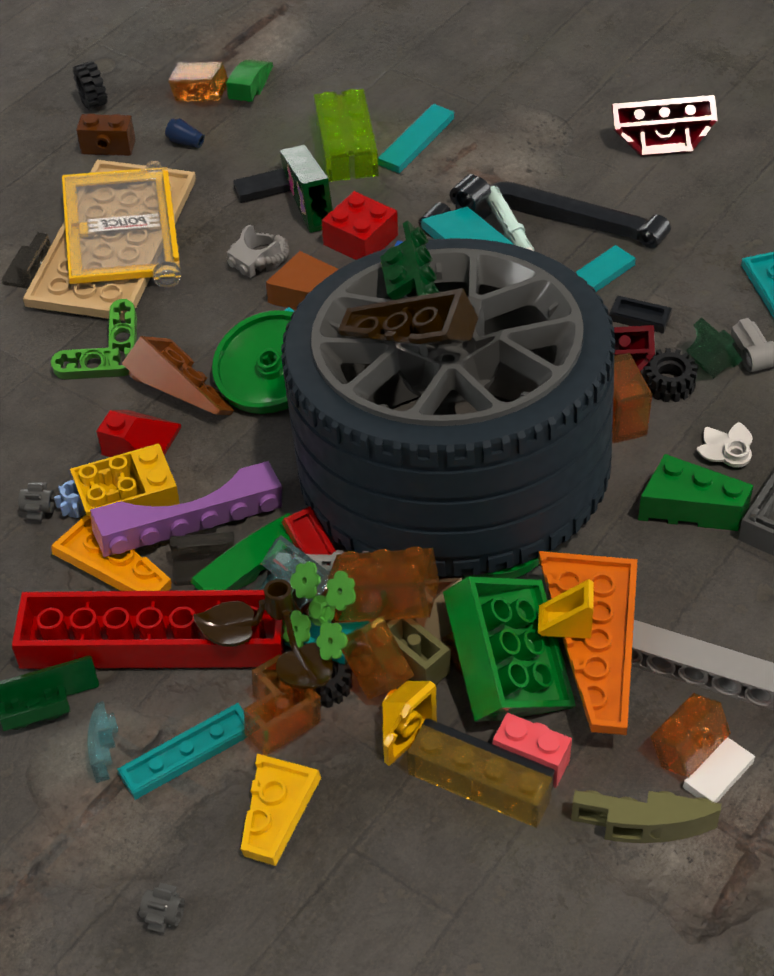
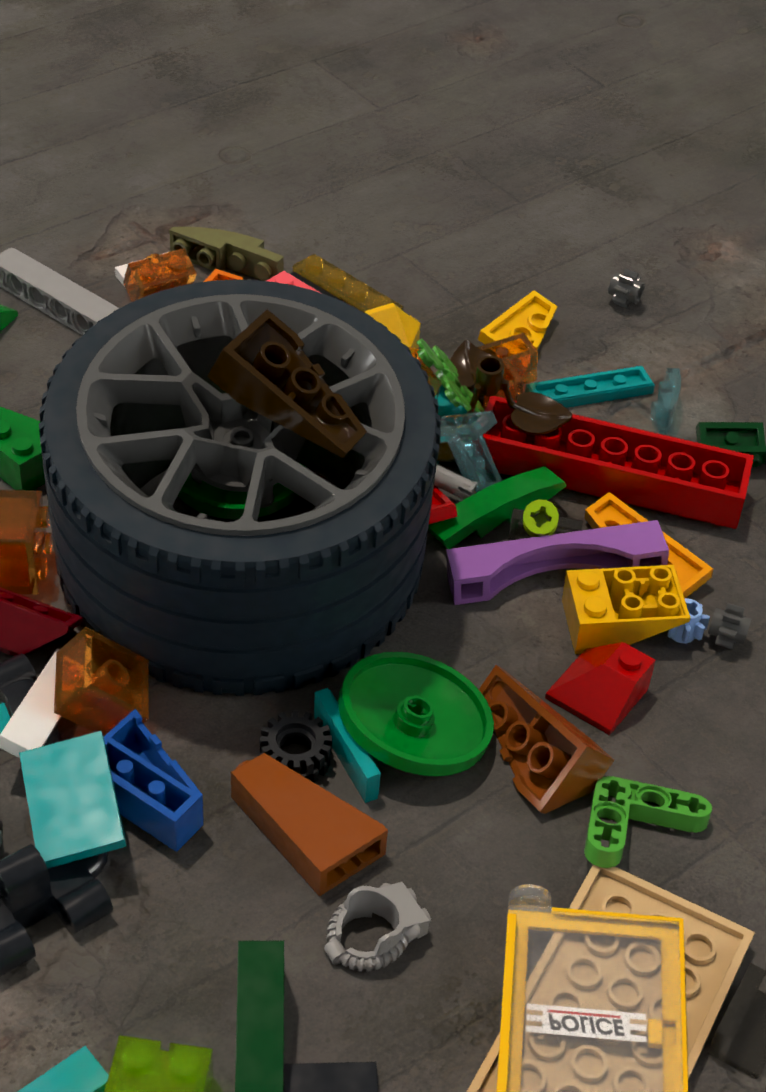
camera: 170 degrees left, 5 degrees down
(206, 521) = (539, 524): none -> lime wheel
(359, 226) = (206, 914): red brick -> none
(408, 265) = (251, 476): dark green bracket -> none

